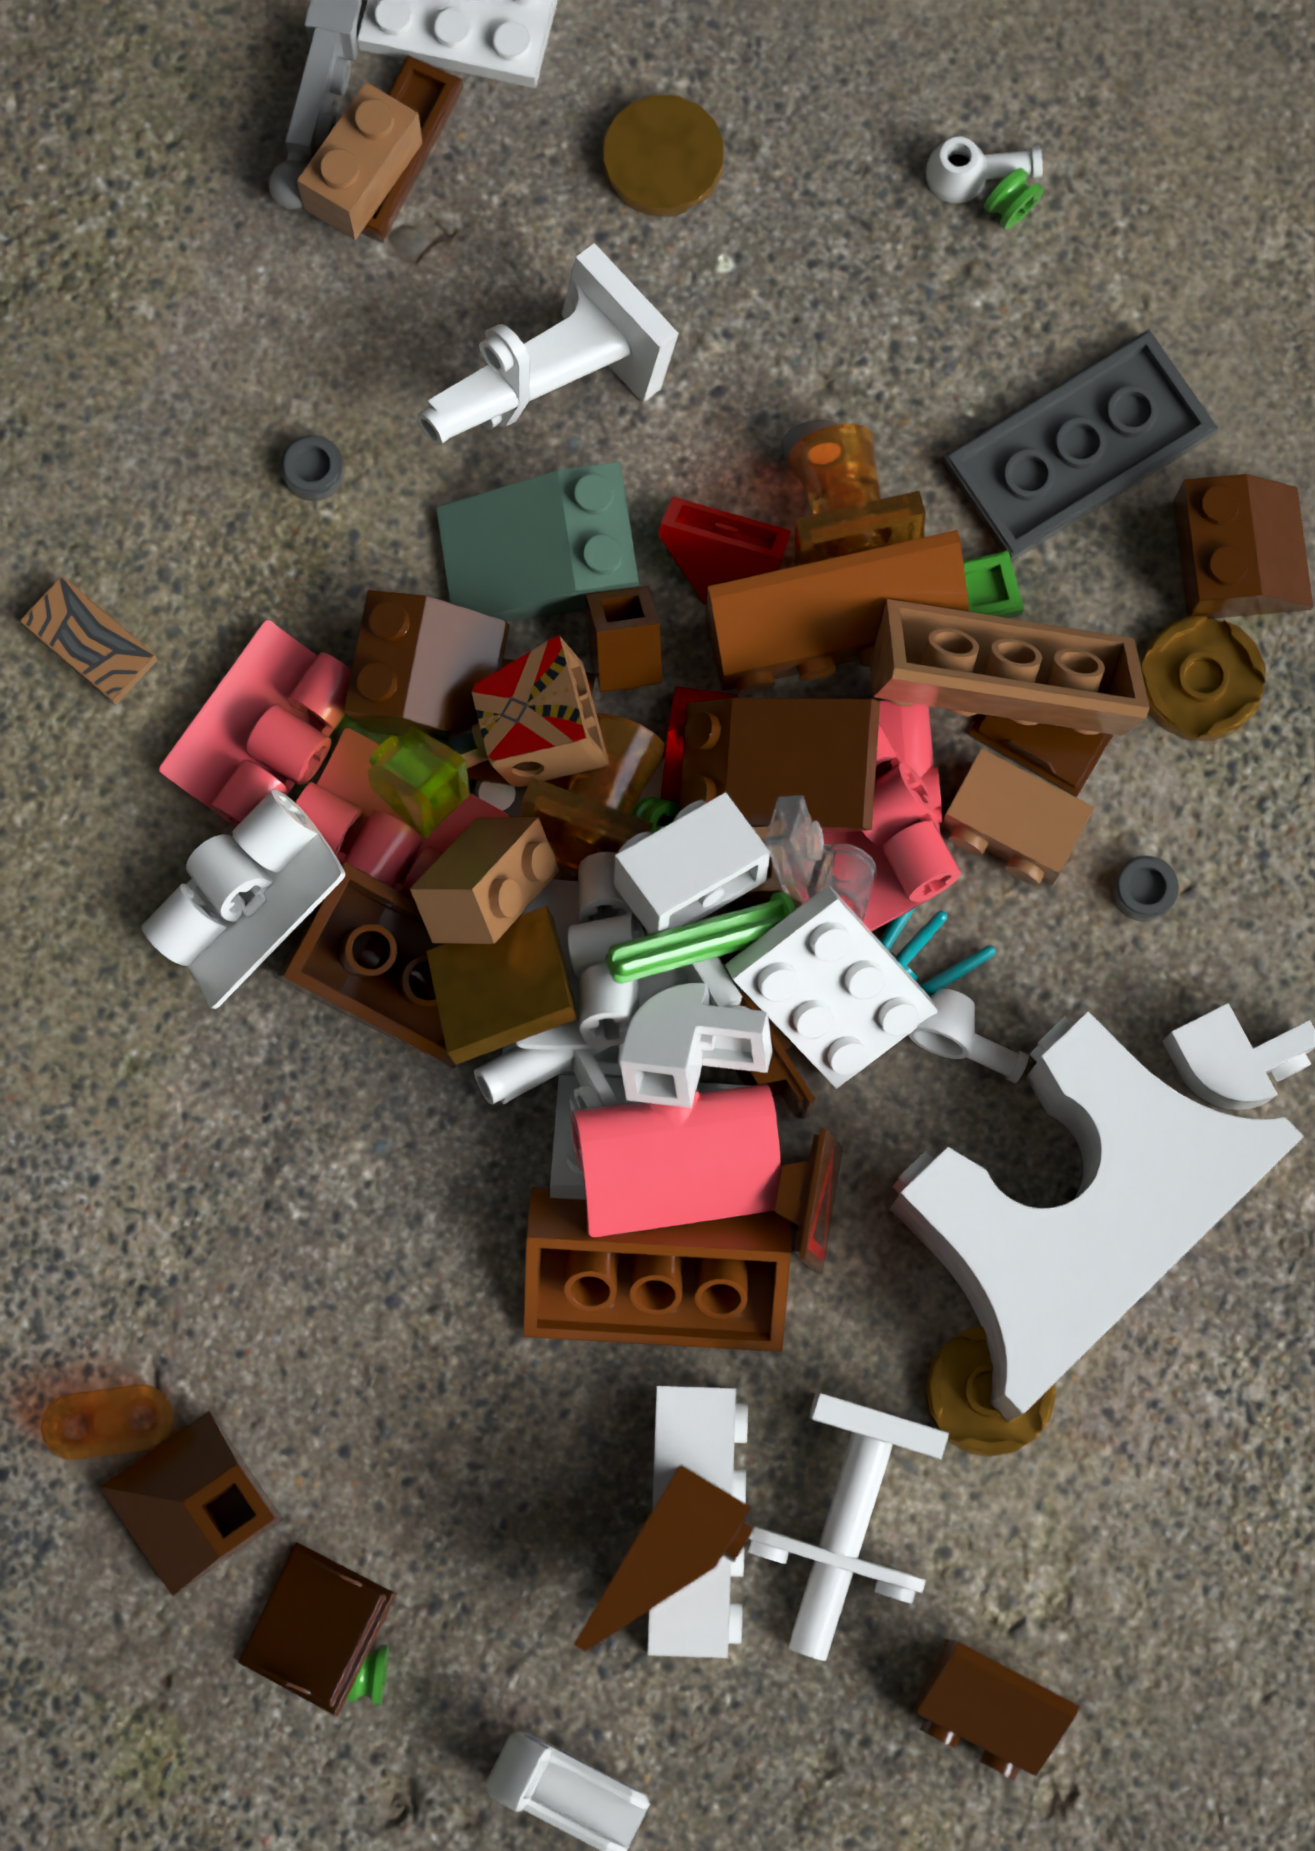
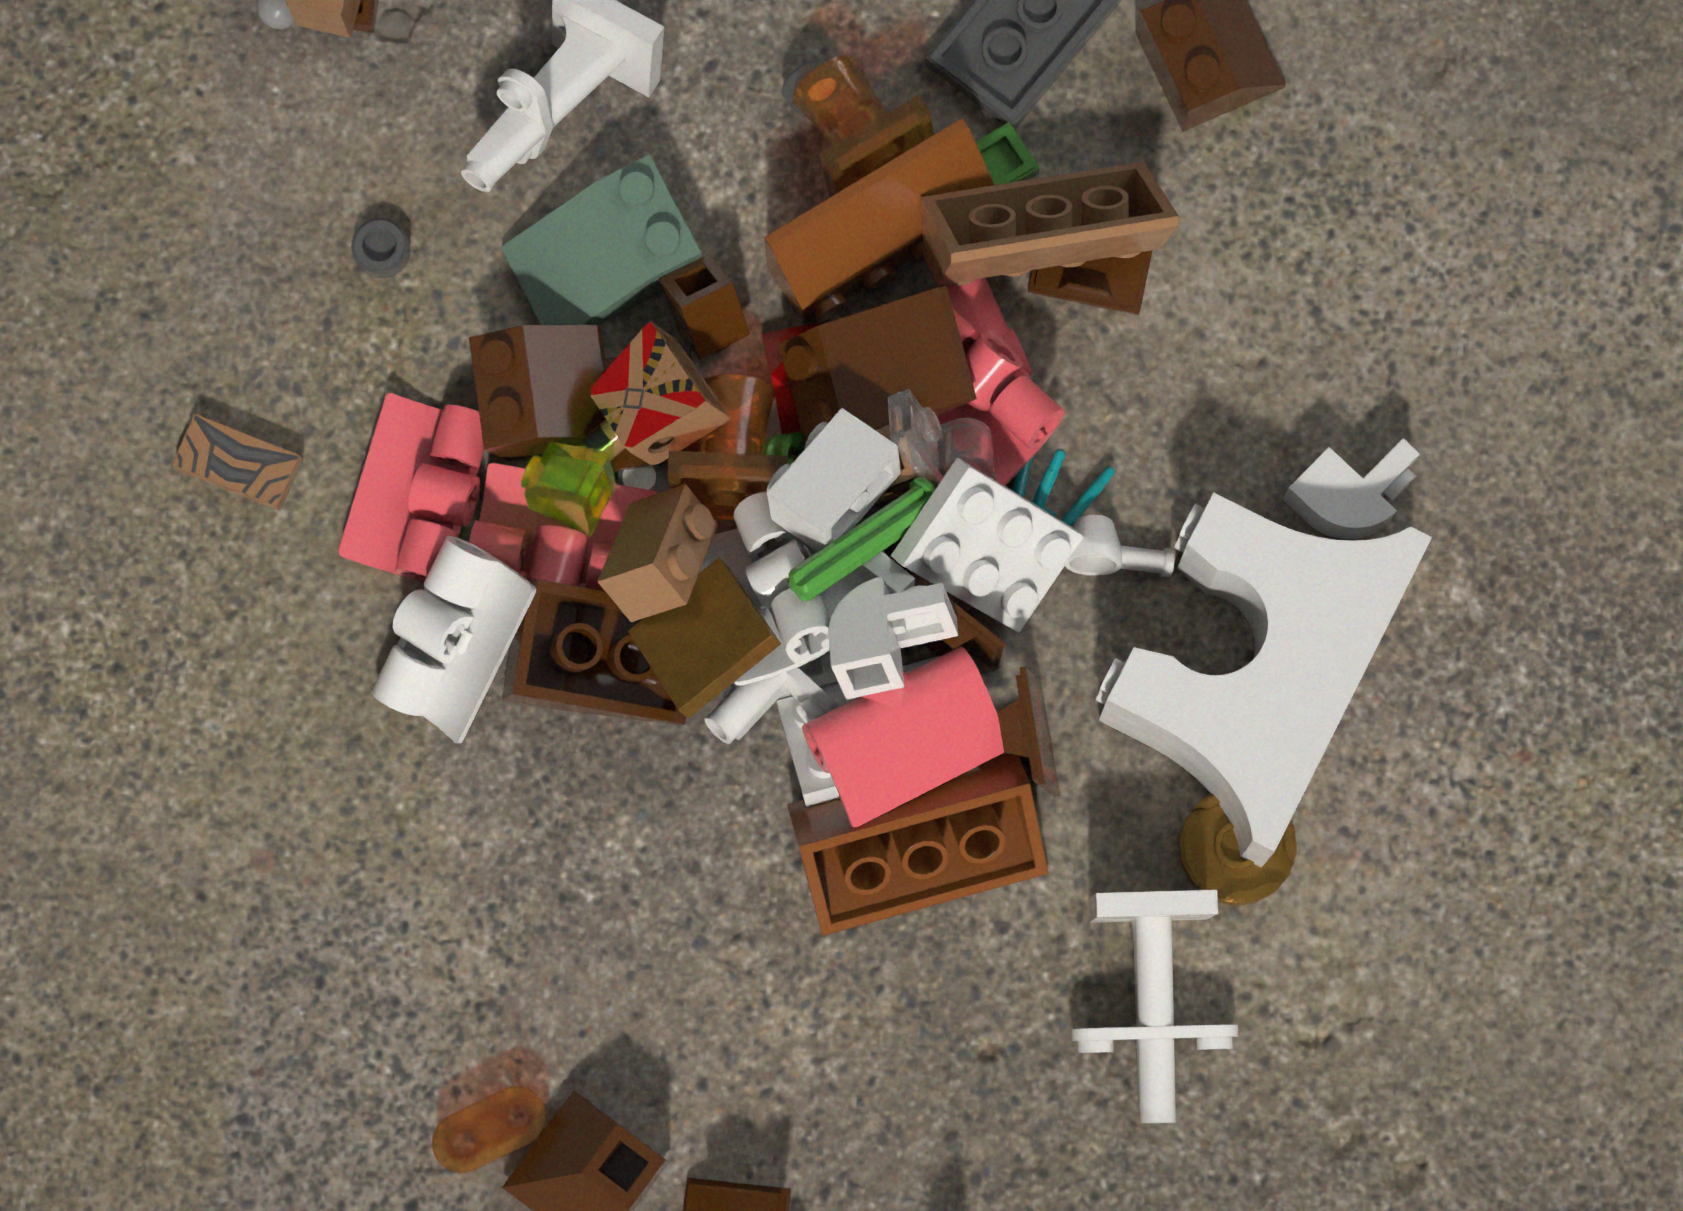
camera: 15 degrees left, 0 degrees up
(676, 1546) = (1020, 1058): reddish brown slope -> none
(699, 1432) = (1022, 1041): white brick -> none
(719, 545) = (758, 199): red slope -> none
(993, 1709) = (1332, 1113): reddish brown slope -> none
(1016, 819) = (1094, 350): medium nougat brick -> none
(1145, 888) = (1224, 373): dark grey tile -> none
(1203, 678) = (1213, 176): pearl gold tile -> none

